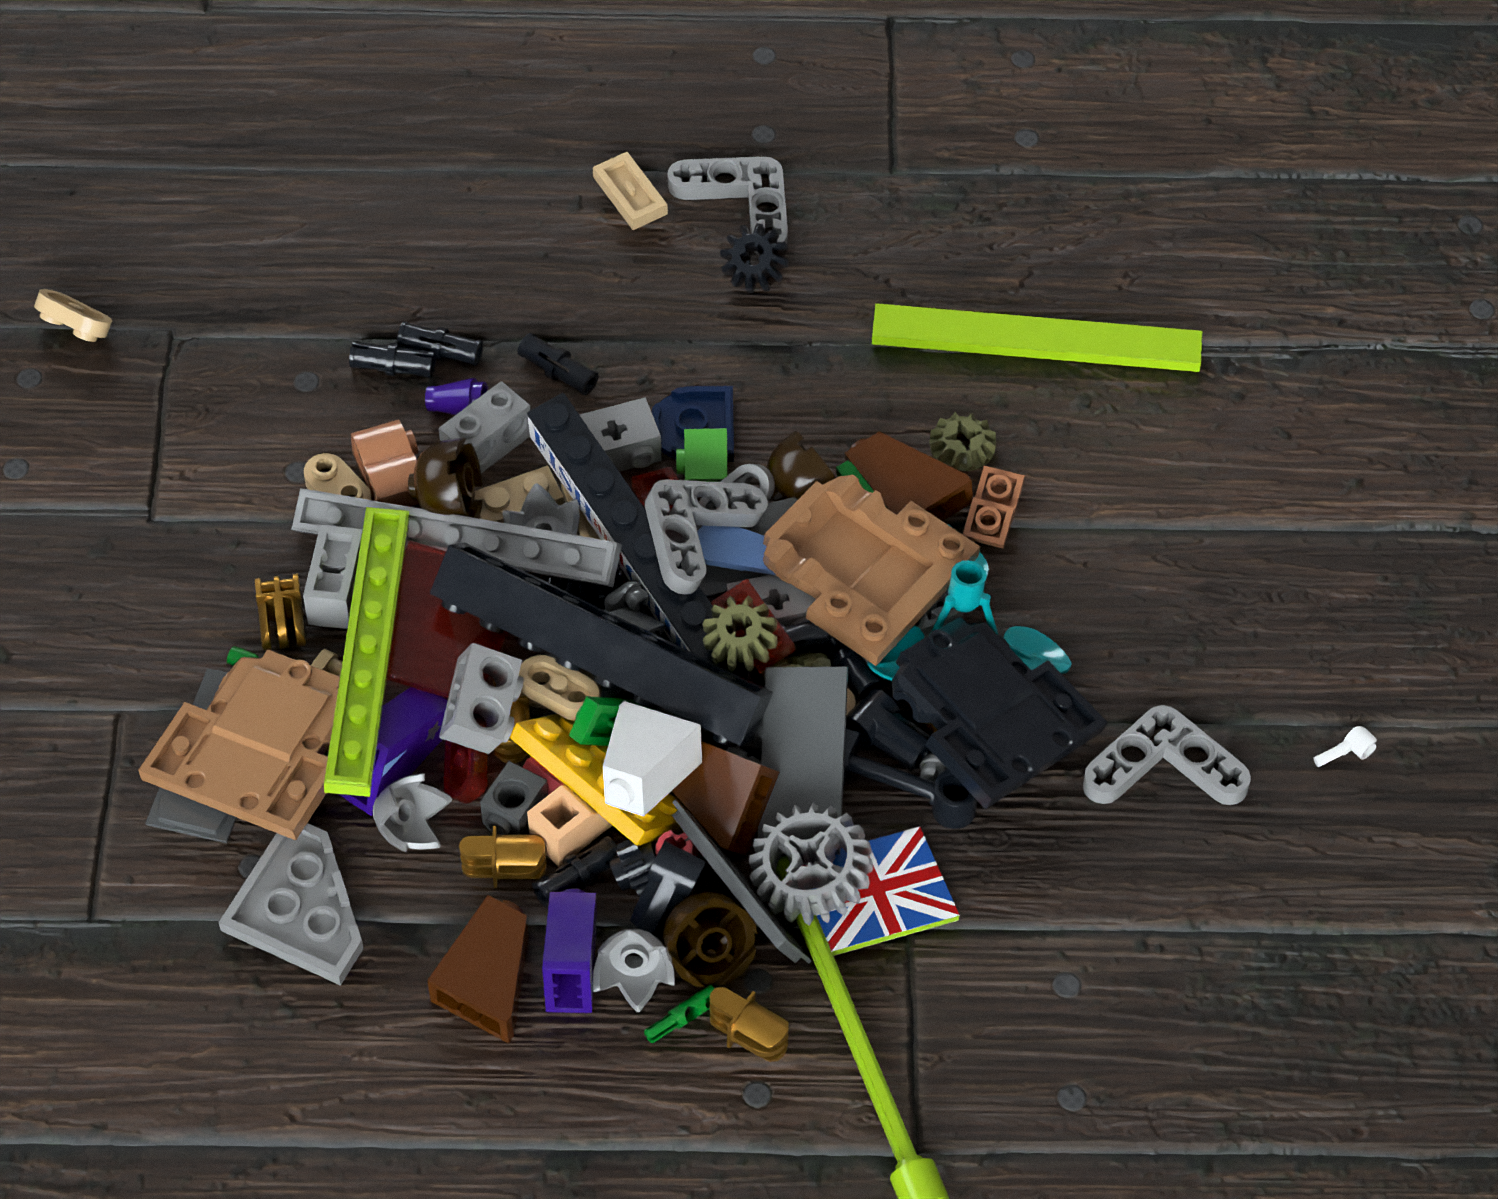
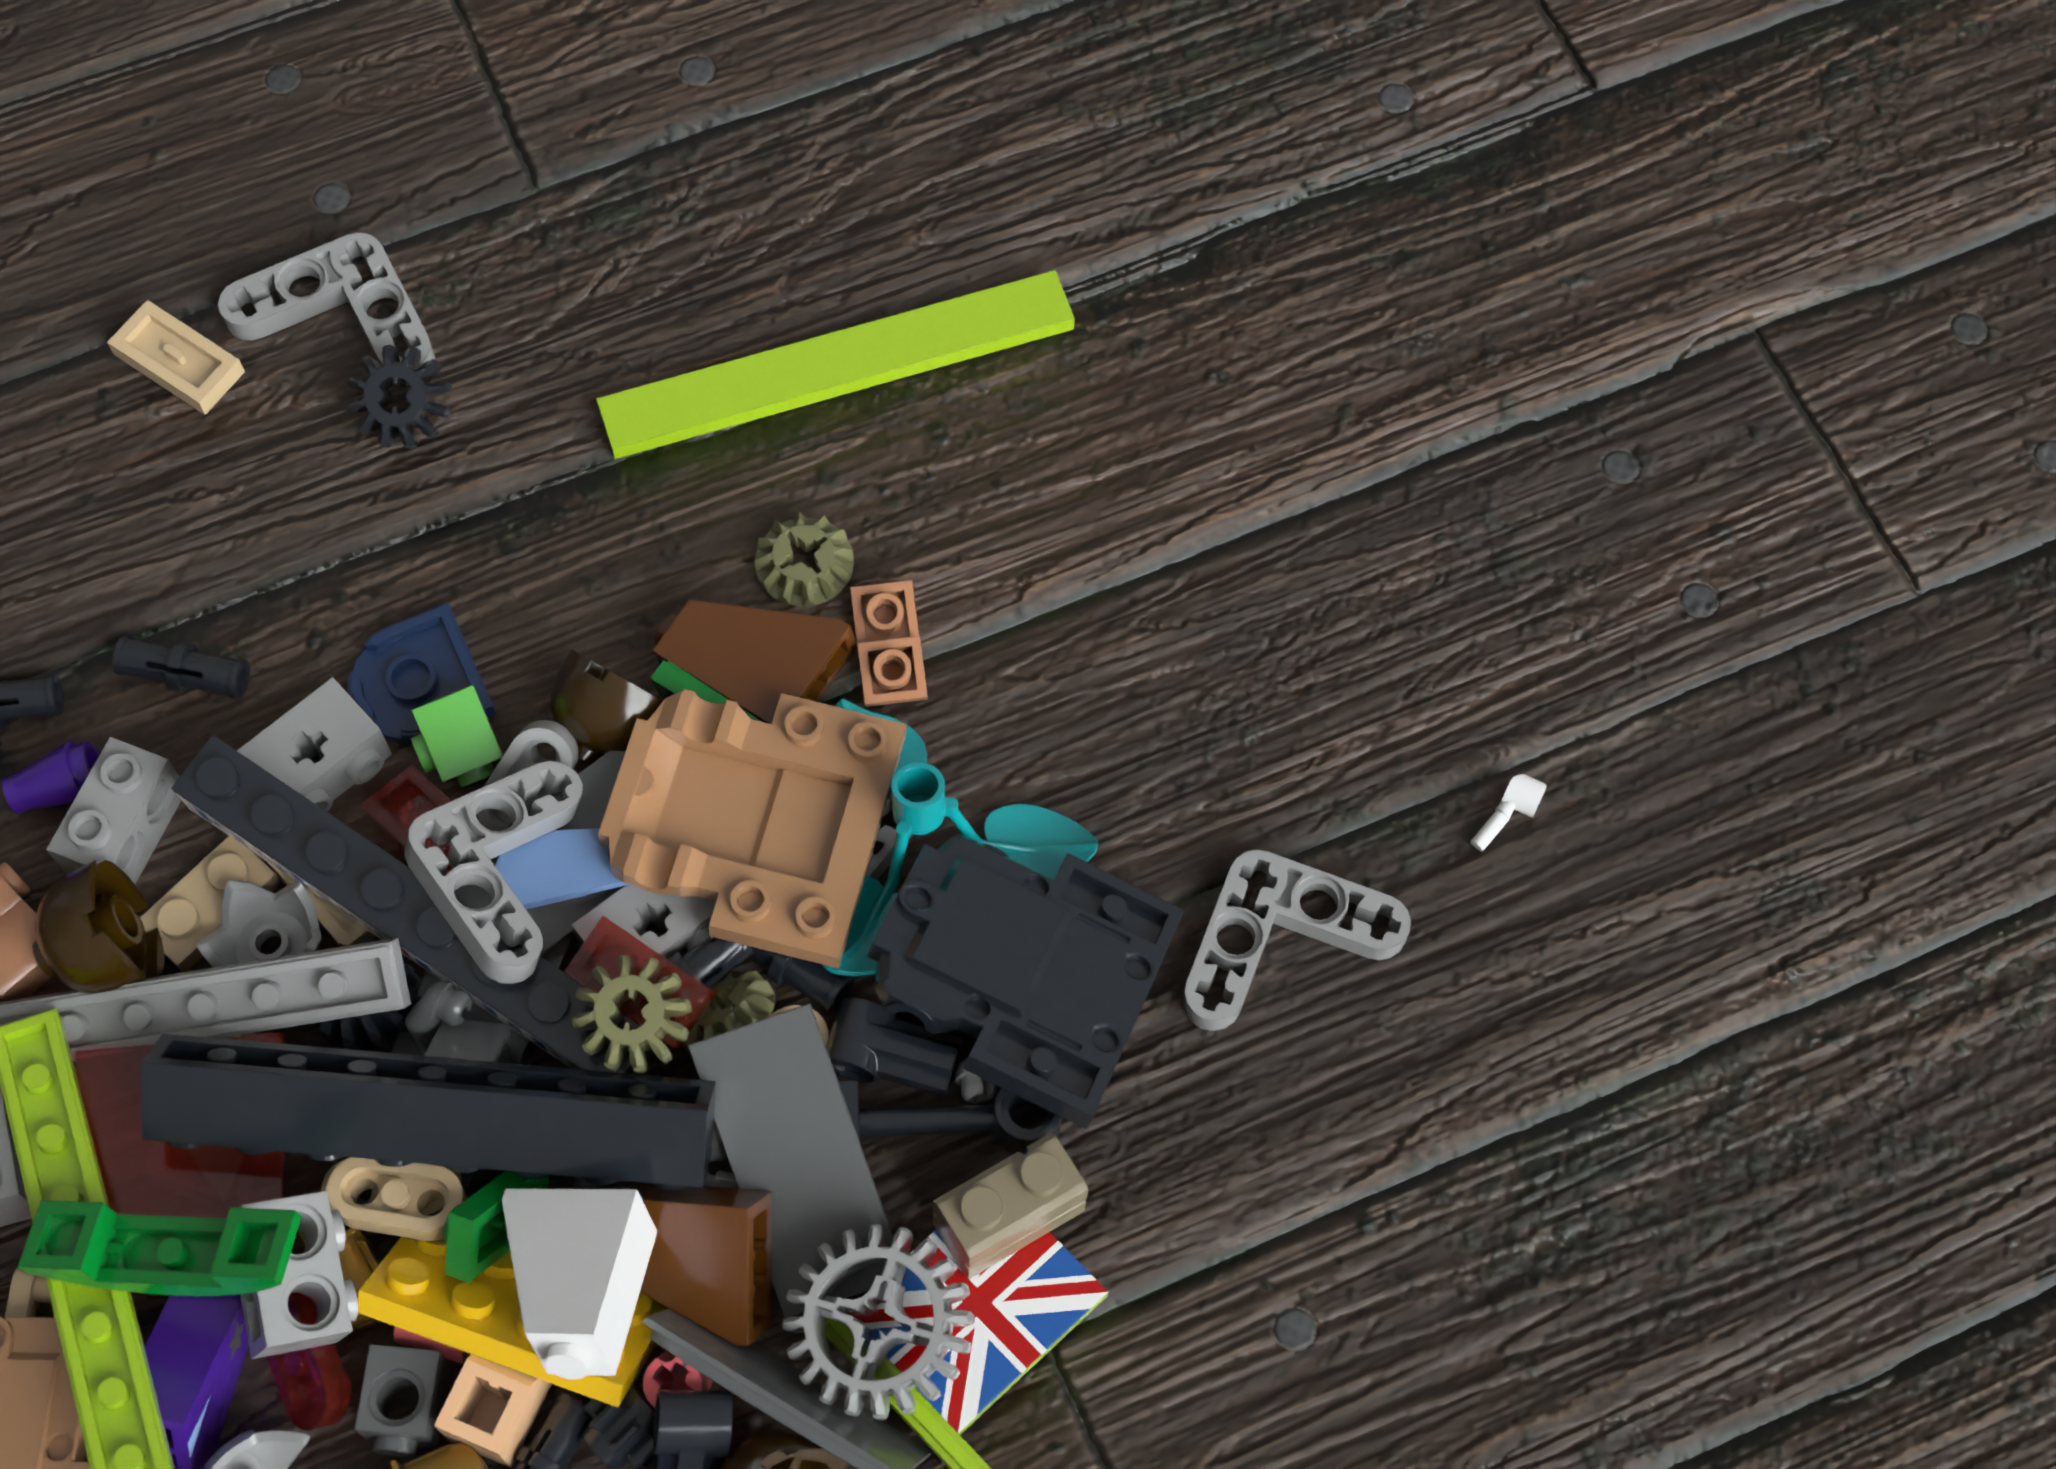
camera: 25 degrees left, 10 degrees up
(414, 652) = (160, 1253): none -> green slope
(920, 837) = (1009, 1205): none -> dark tan brick

